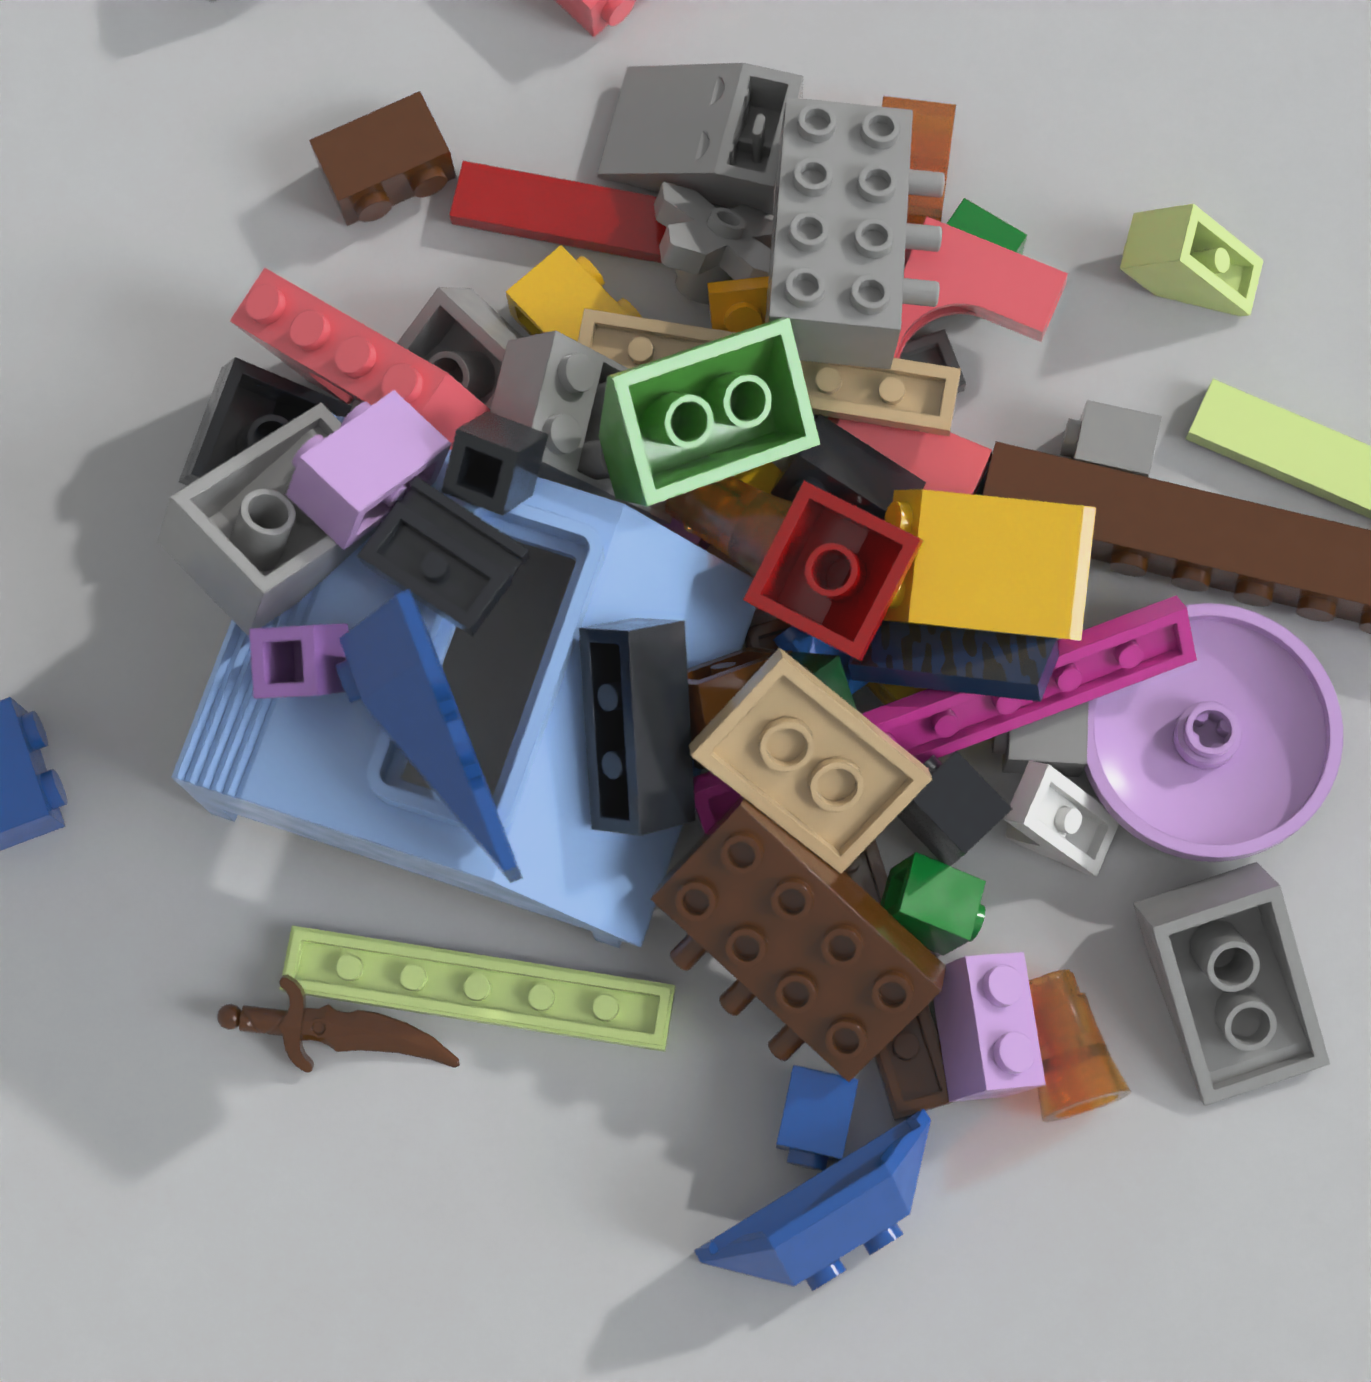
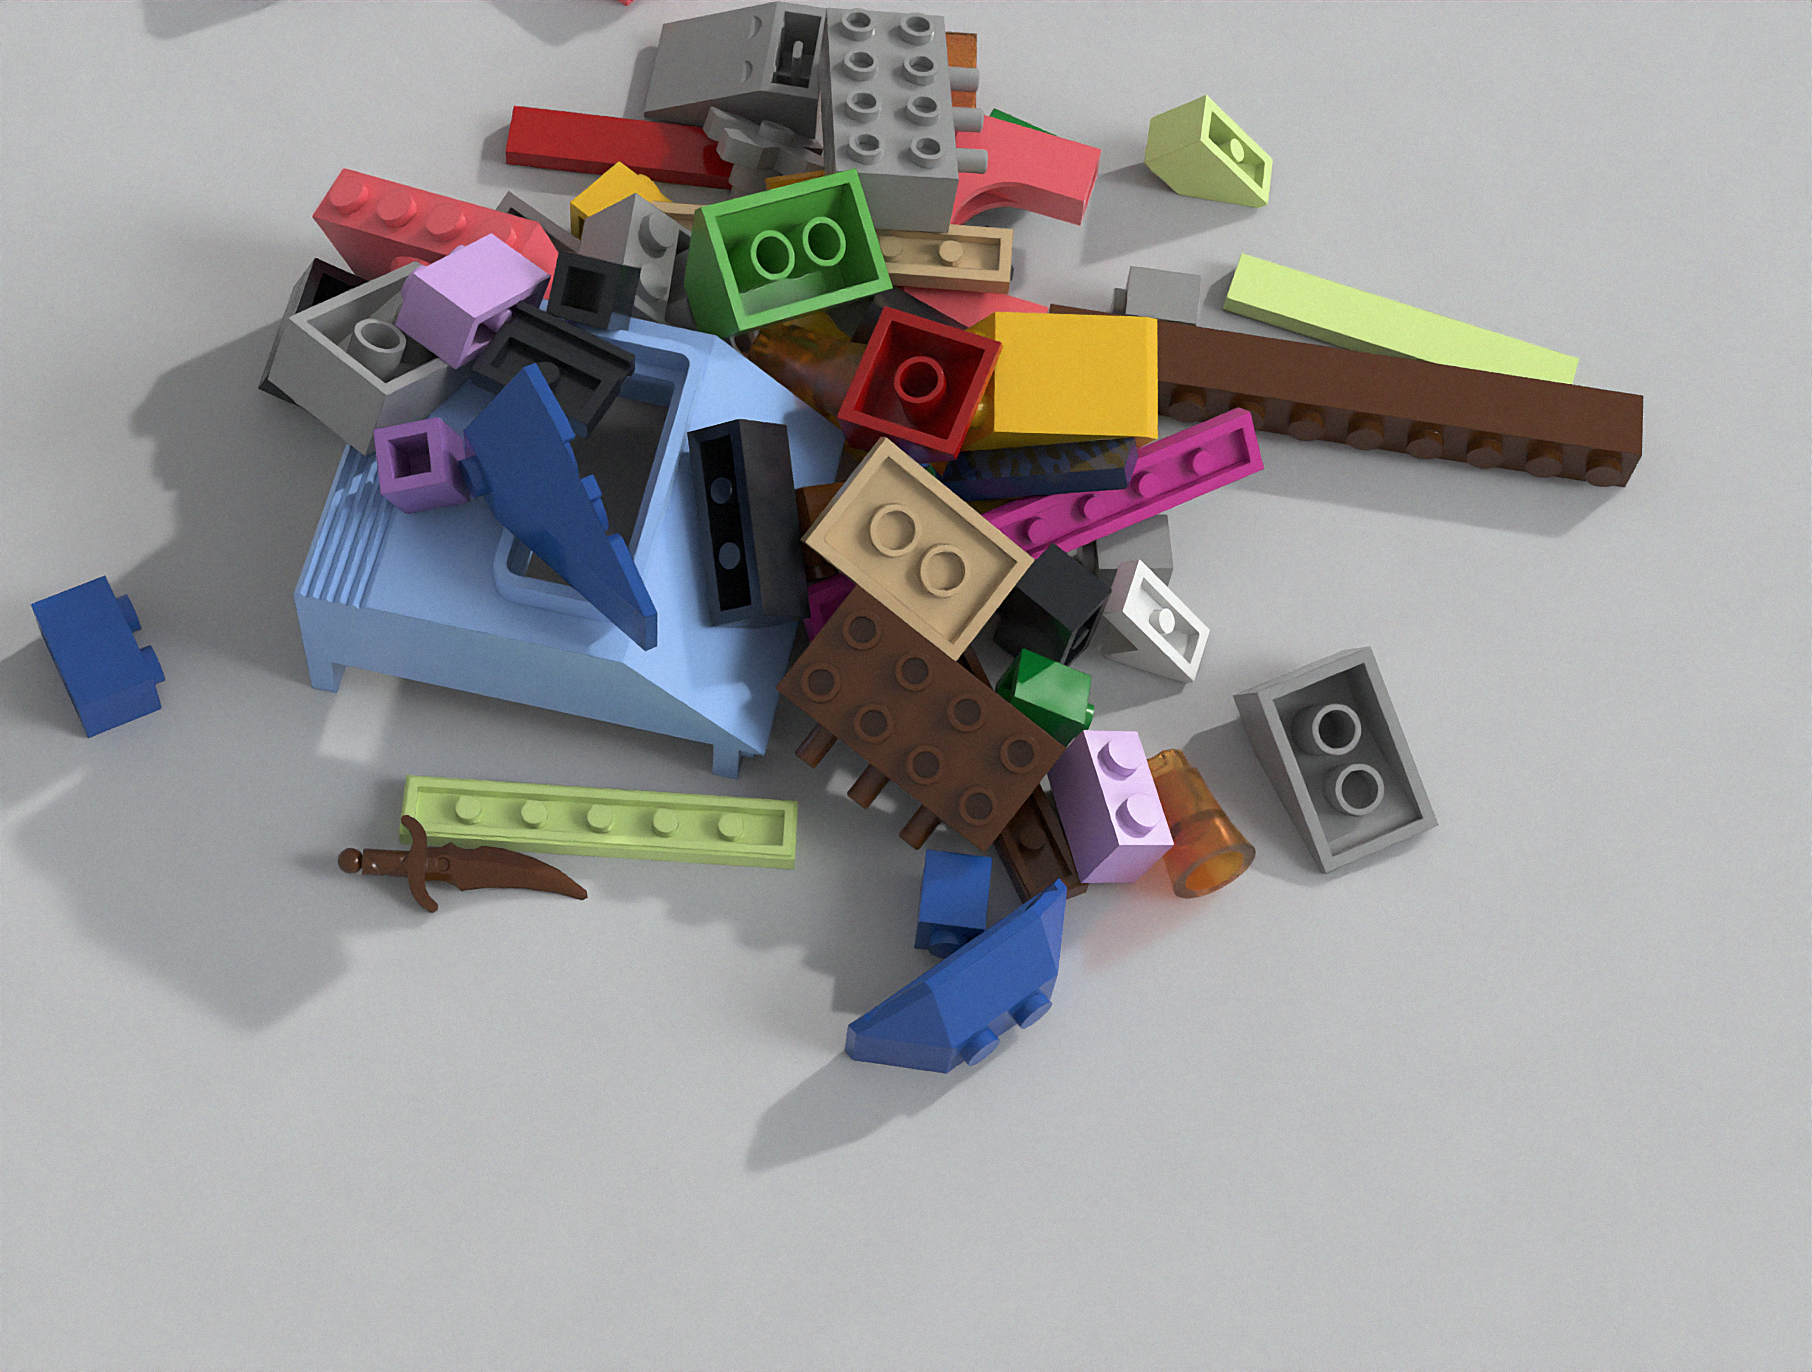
camera: 20 degrees left, 15 degrees down
(384, 159) = (437, 105): reddish brown brick -> none
(1221, 748) = (1294, 549): lavender dish -> none

